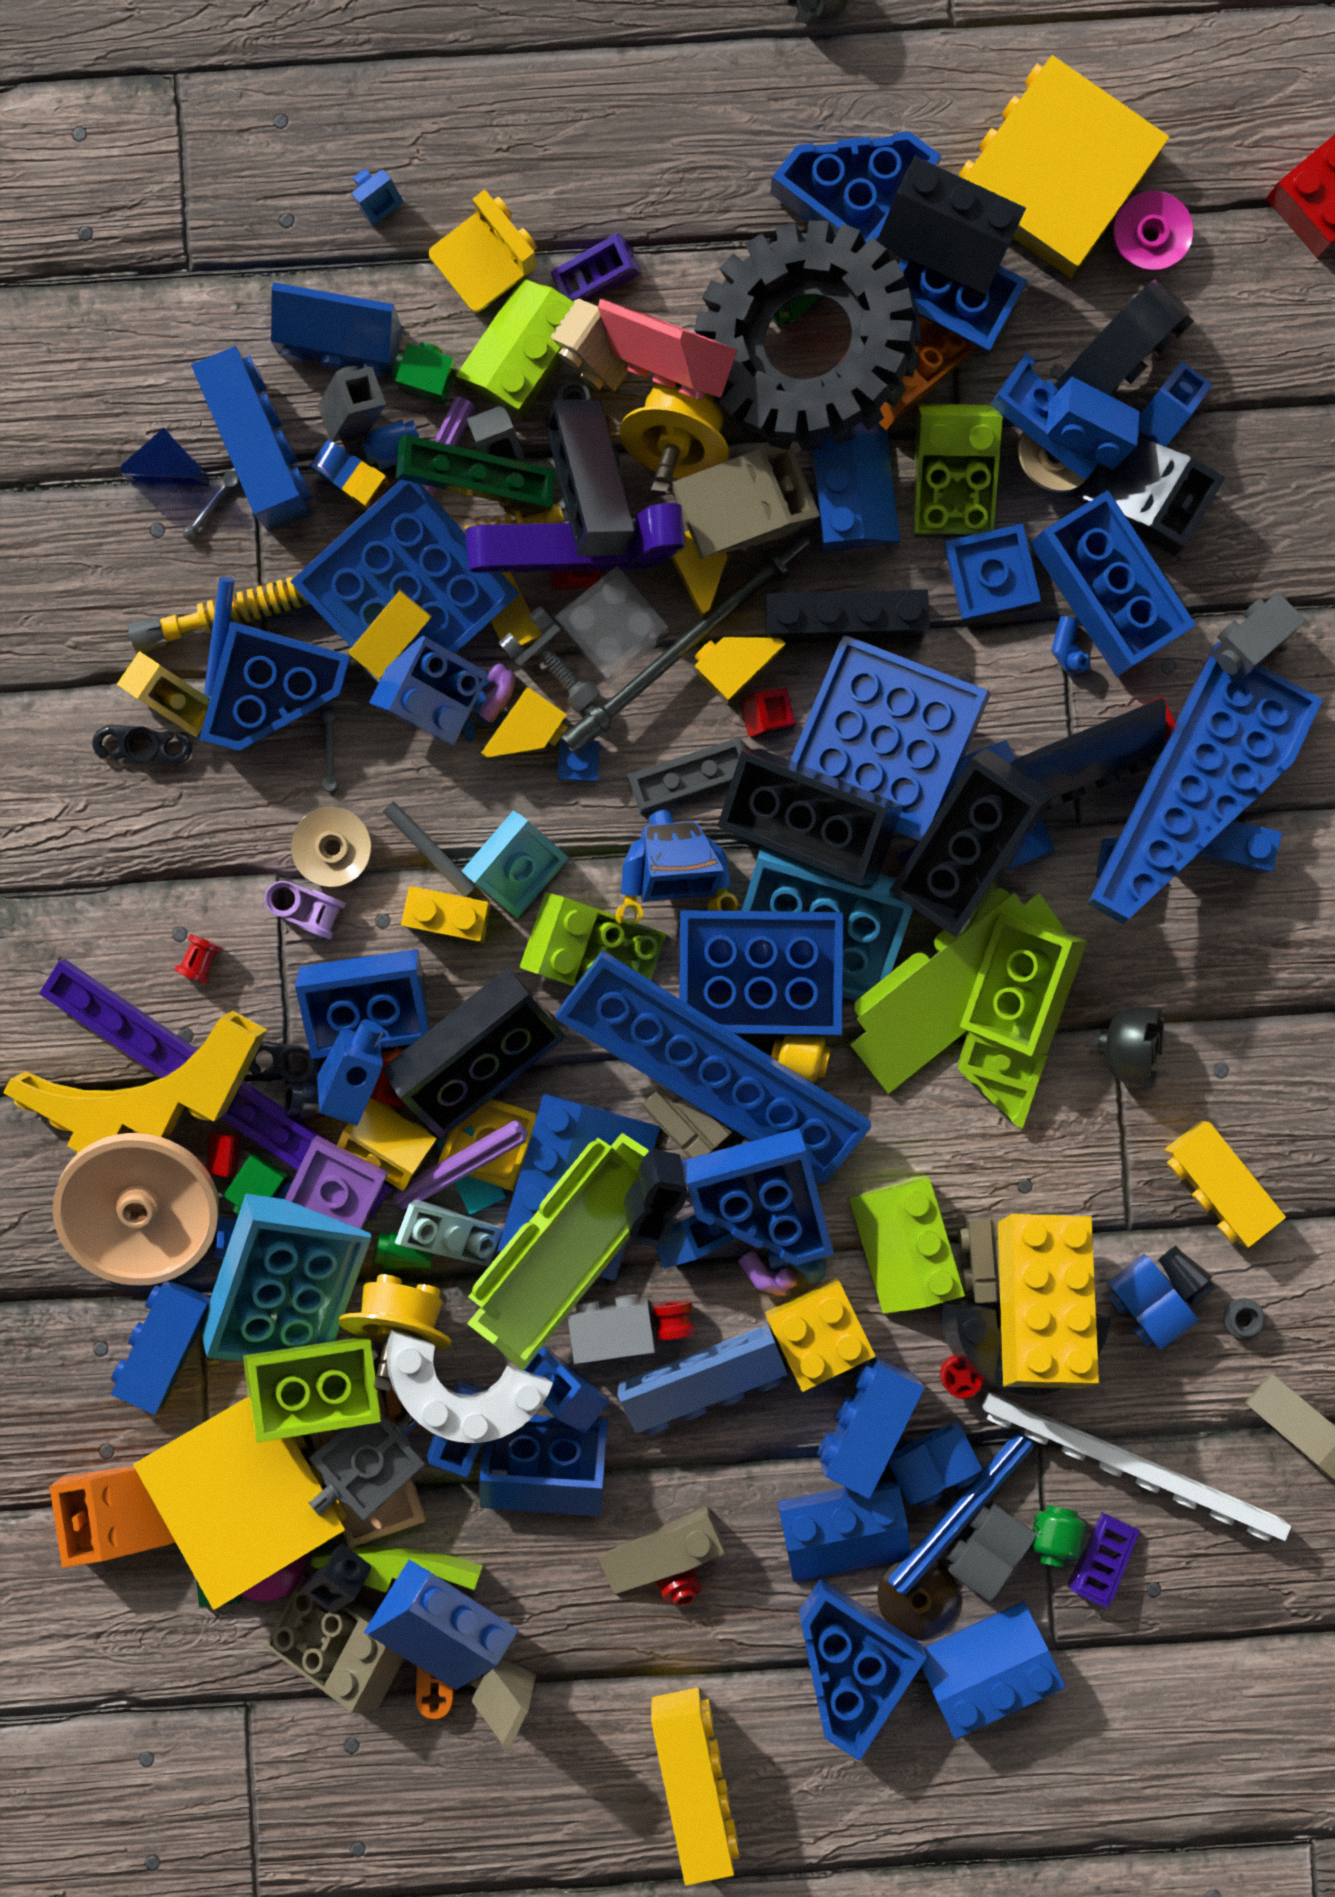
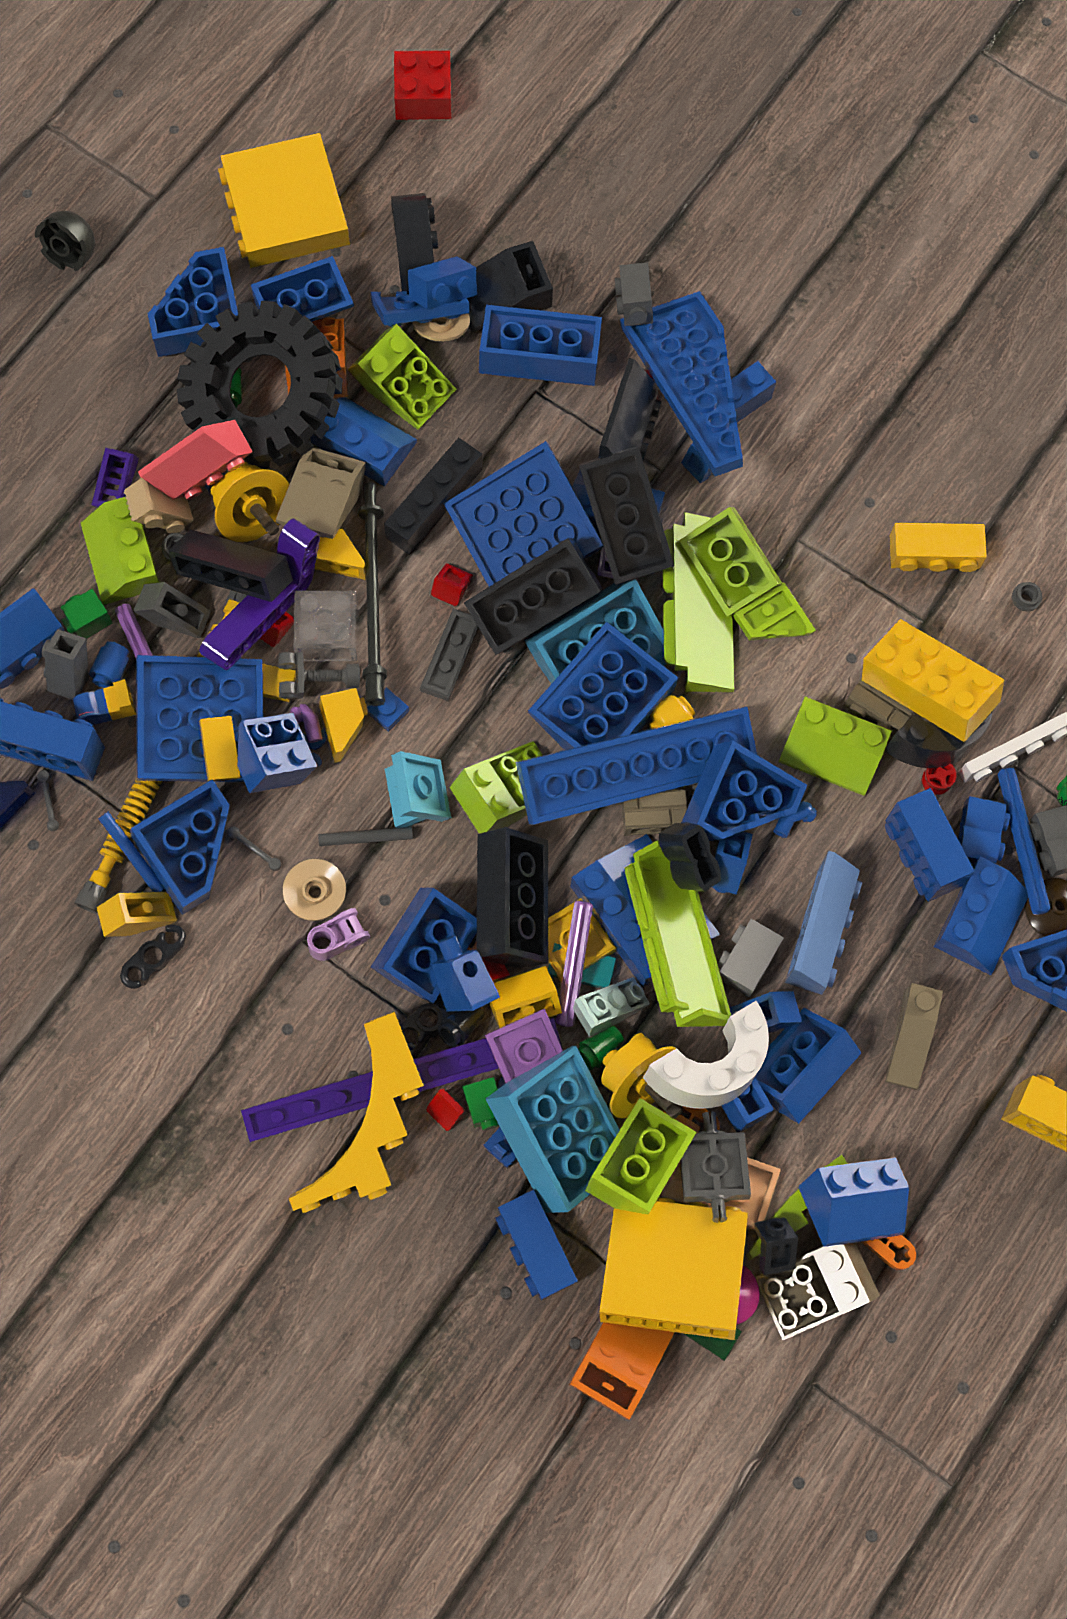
camera: 55 degrees left, 15 degrees down
(136, 1209) = (437, 1186): light nougat dish -> none
(198, 959) = (313, 1025): red bush -> none
(446, 914) = (414, 853): yellow brick -> none
(474, 473) = (171, 623): dark green plate -> none
(485, 254) = (48, 527): yellow bracket -> none
(504, 1698) = (935, 1198): dark tan slope -> none
(674, 864) = (496, 698): blue torso -> none
(674, 1320) = (773, 914): red wheel -> none
(680, 1588) = (943, 1043): red plate -> none
(735, 663) = (407, 577): yellow slope -> none
(766, 1280) = (789, 845): medium lavender arm -> none
(819, 1334) = (851, 831): yellow brick -> none
(950, 226) = (268, 265): black slope -> none
(992, 572) = (477, 403): blue plate -> none
(1065, 649) = (554, 400): blue arm -> none
(1134, 1045) = (816, 531): pearl dark grey cylinder -> none
(1151, 1302) = (979, 636): blue brick -> none
(1163, 216) = (362, 172): dark pink dish -> none
(1172, 405) = (467, 241): blue slope -> none
(1187, 1277) = (977, 607): black cone -> none

